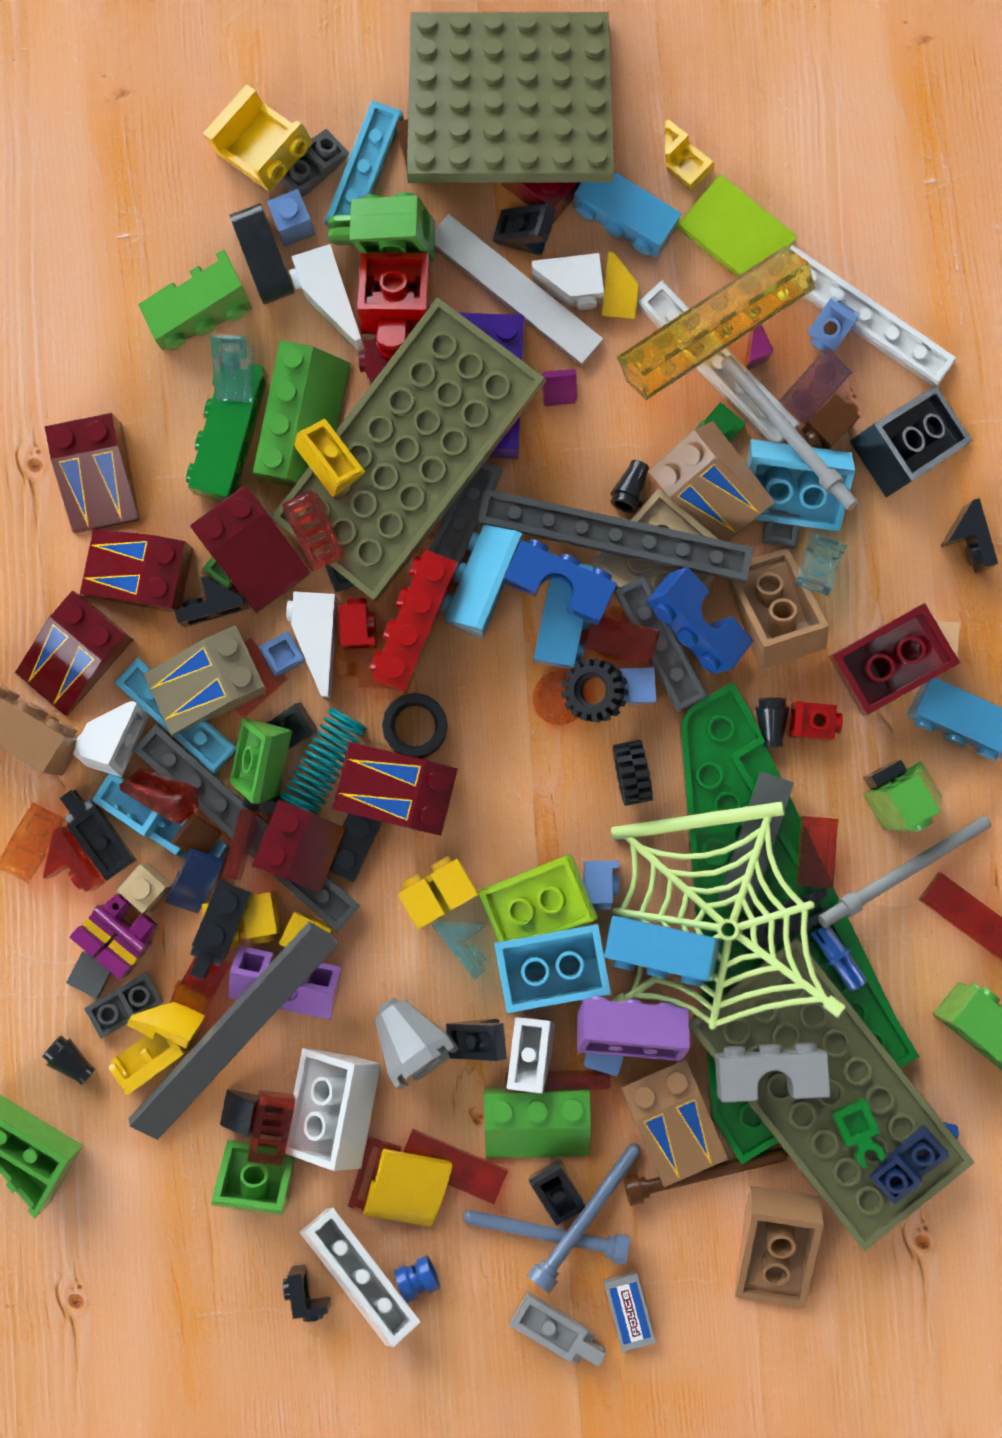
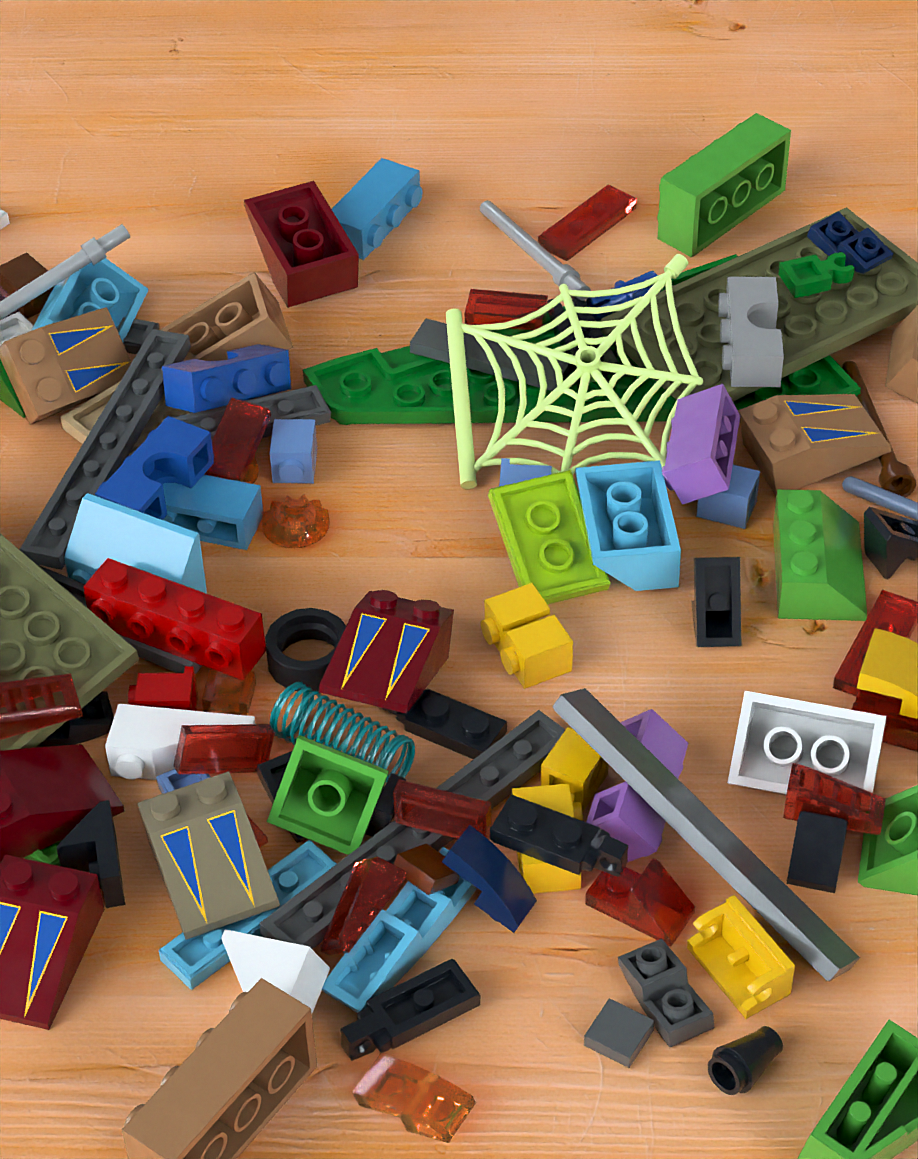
camera: 85 degrees left, 40 degrees down
(67, 852) = (440, 1038): clear red slope -> none
(72, 652) = (125, 1018): dark red slope -> none
(113, 938) = (564, 991): magenta hips -> none
(145, 888) = (495, 944): tan brick -> none
(169, 1020) = (685, 915): yellow slope -> none
(299, 846) = (449, 756): dark red slope -> none
(301, 677) = (223, 748): none -> clear red tile
(410, 1042) = (719, 659): light grey cone -> none
(455, 935) = (593, 619): clear light blue slope -> none
(530, 1054) = (733, 535): white slope -> none
(573, 1080) = (767, 538): clear red tile -> none
(574, 690) = (292, 441): black tyre -> none
(630, 488) = (52, 444): black cone -> none
(632, 772) = (391, 429): black tyre -> none
(662, 950) = (609, 410): dark azure brick -> none
(772, 720) = (347, 341): black cone -> none
(802, 723) = (358, 305): red brick -> none
(820, 562) = (171, 294): clear light blue slope -> none
(885, 774) = (425, 265): black tile -> none
(906, 801) = (455, 231): bright green wedge -> none
(910, 441) = (60, 229): black slope -> none
(973, 529) = (176, 192): black slope -> none

